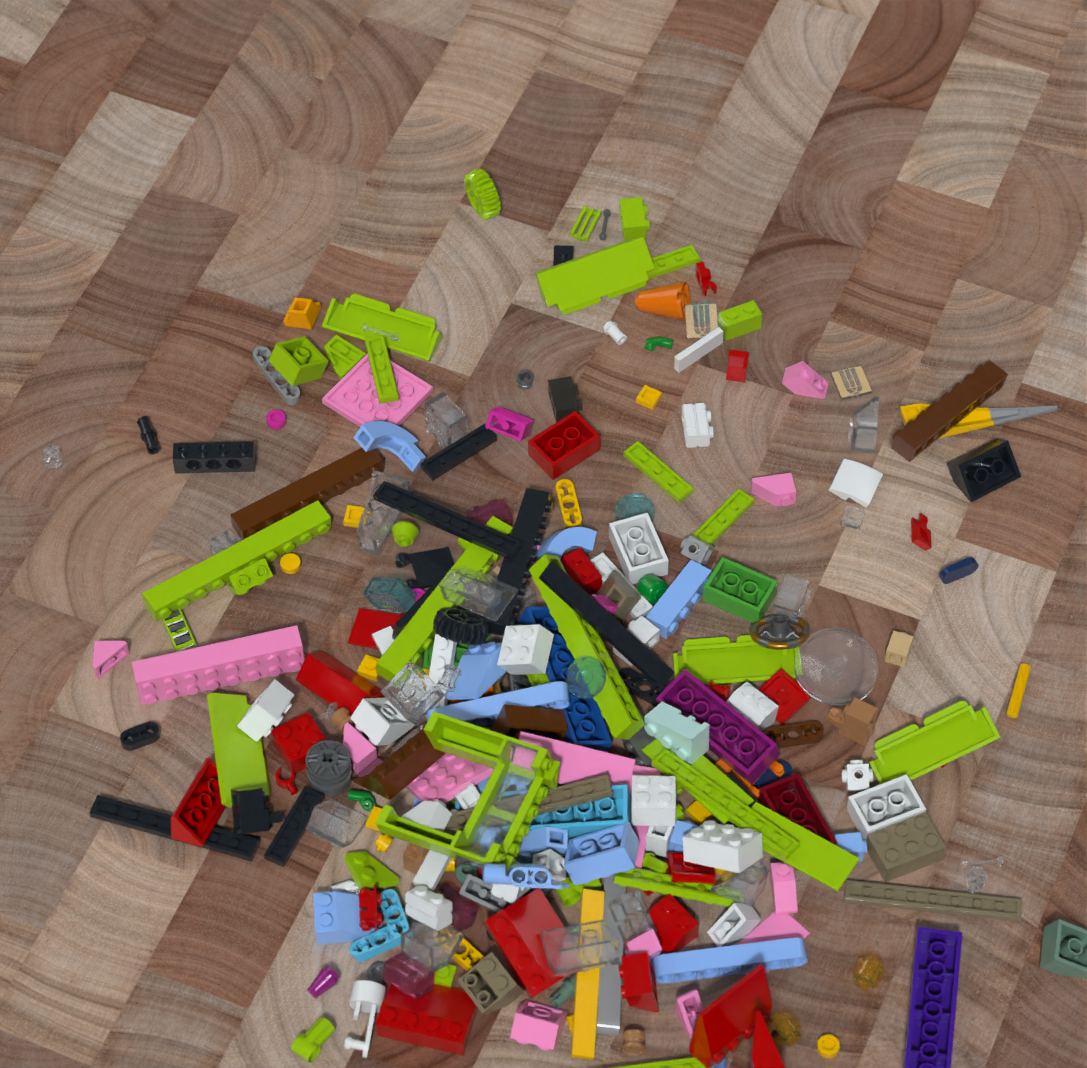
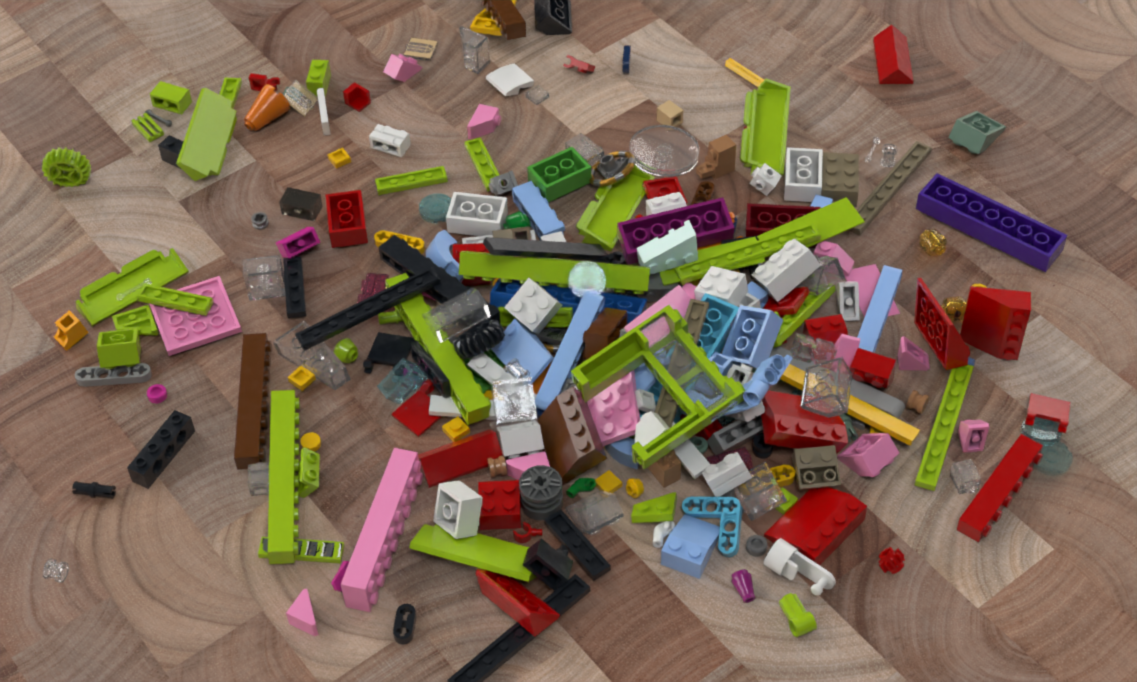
camera: 60 degrees left, 5 degrees down
(332, 706) = (480, 475): clear hand -> none
(369, 900) = (707, 520): red hinge -> none
(393, 438) = (257, 316): light blue arch -> none
(408, 975) = (778, 518): clear pink brick -> none
(614, 332) = (264, 151): white pin -> none
(659, 341) = (294, 131): green arm -> none

